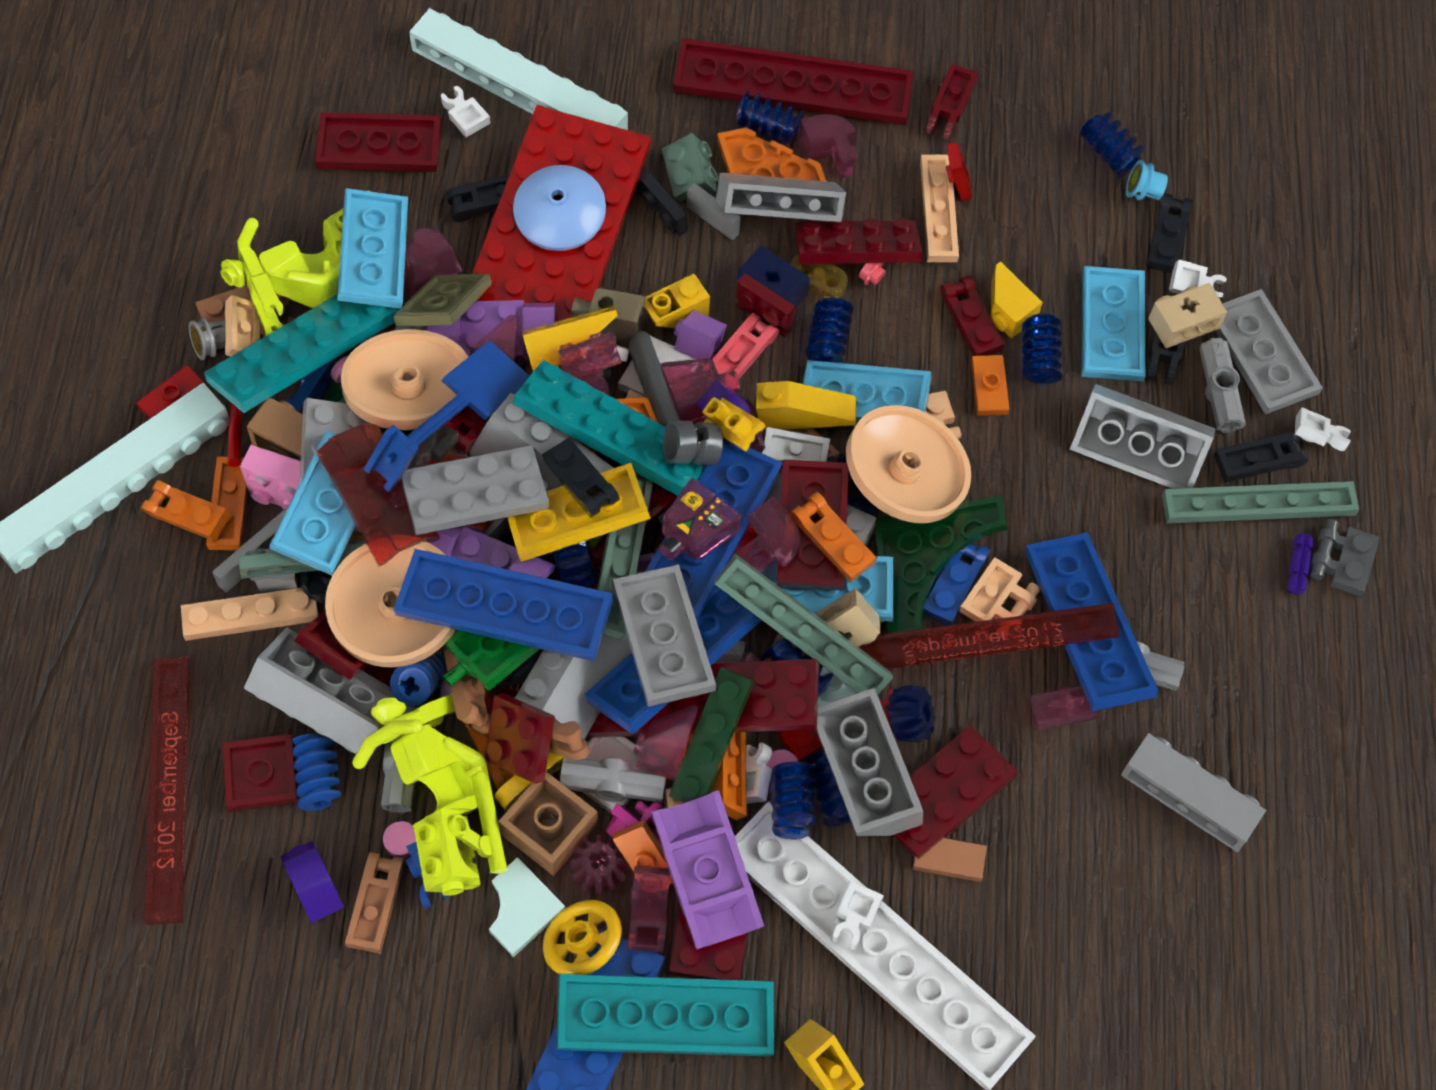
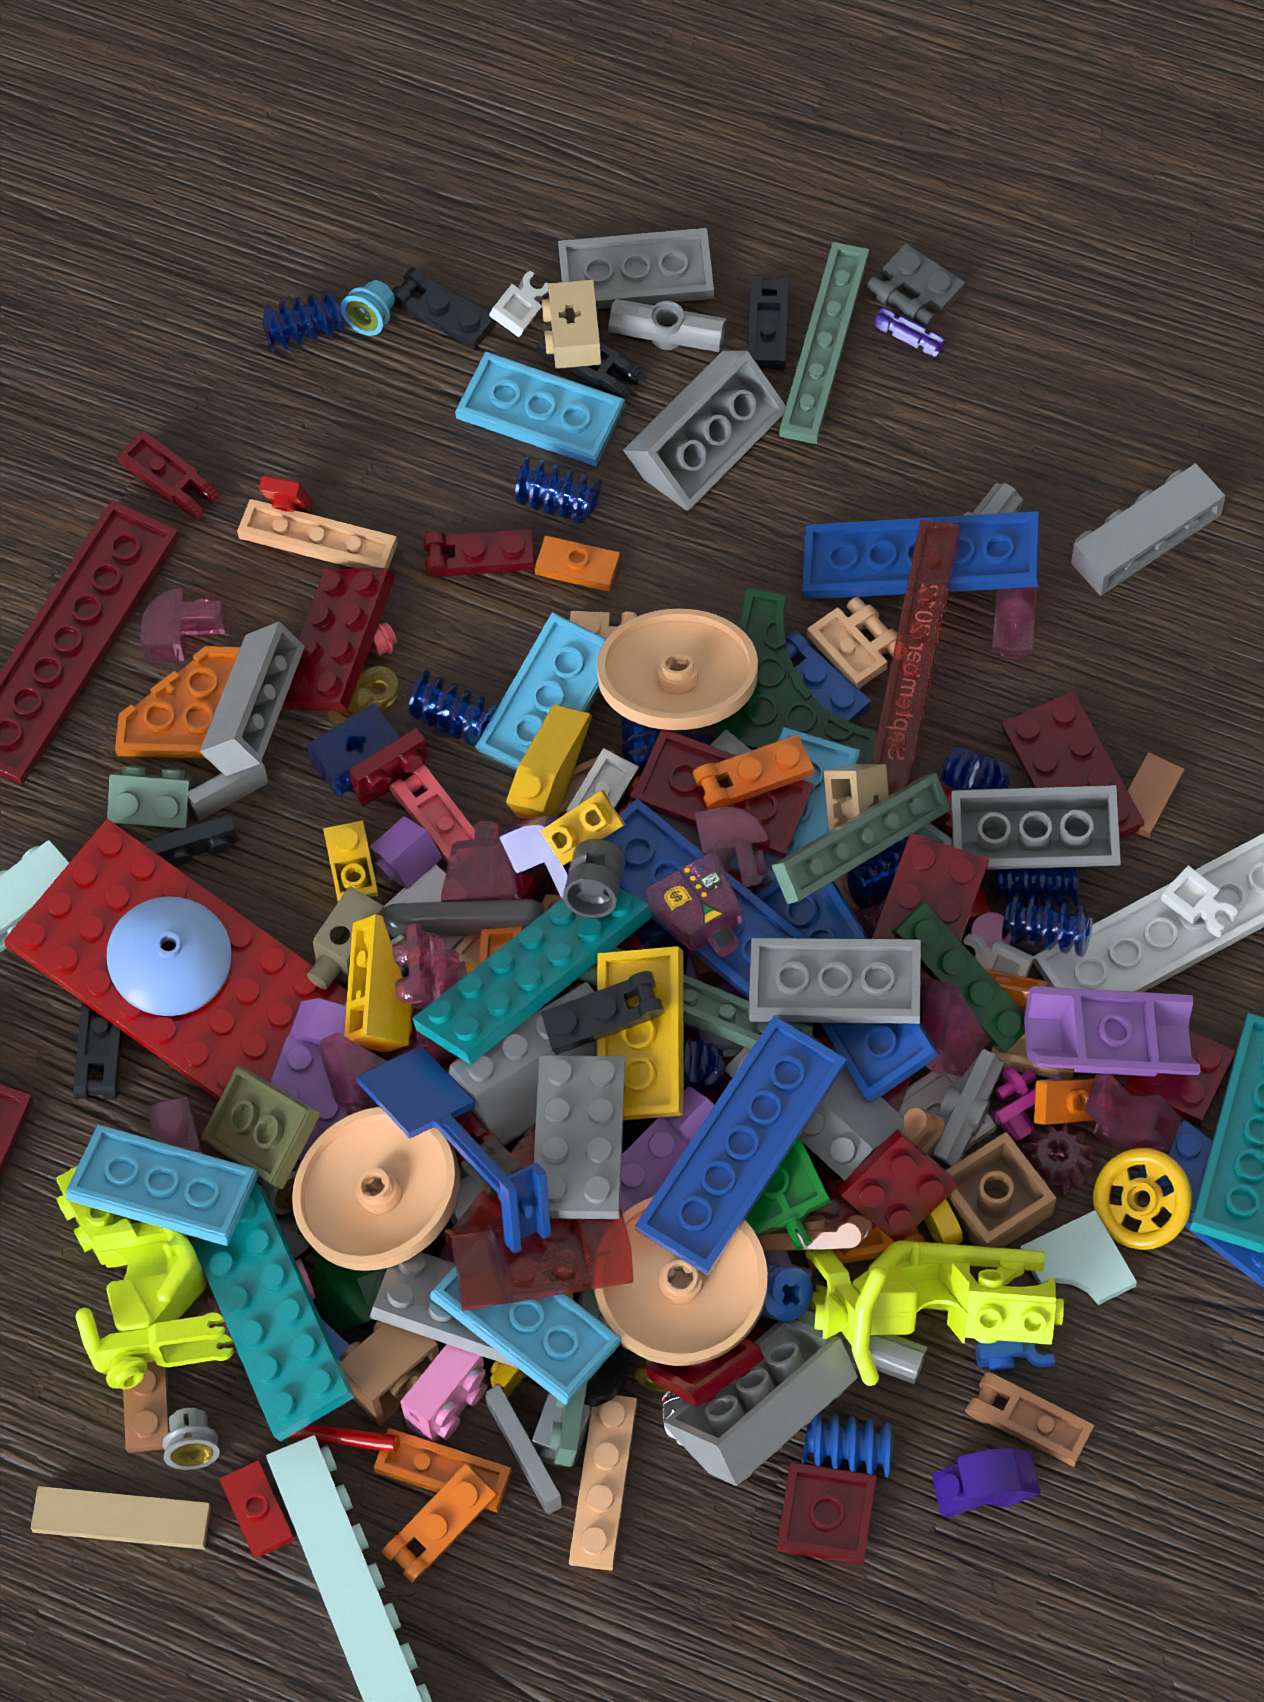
camera: 65 degrees left, 0 degrees up
(146, 317) = (121, 1517): none -> tan tile
(167, 792) = (810, 1631): clear red tile -> none
(241, 325) = (205, 1385): light nougat plate -> none
(397, 837) = (958, 1373): bright pink tile -> none
(768, 119) = (116, 680): clear blue piece -> none
(1011, 301) = (476, 503): yellow slope -> none
(1318, 429) = (755, 253): white plate -> none

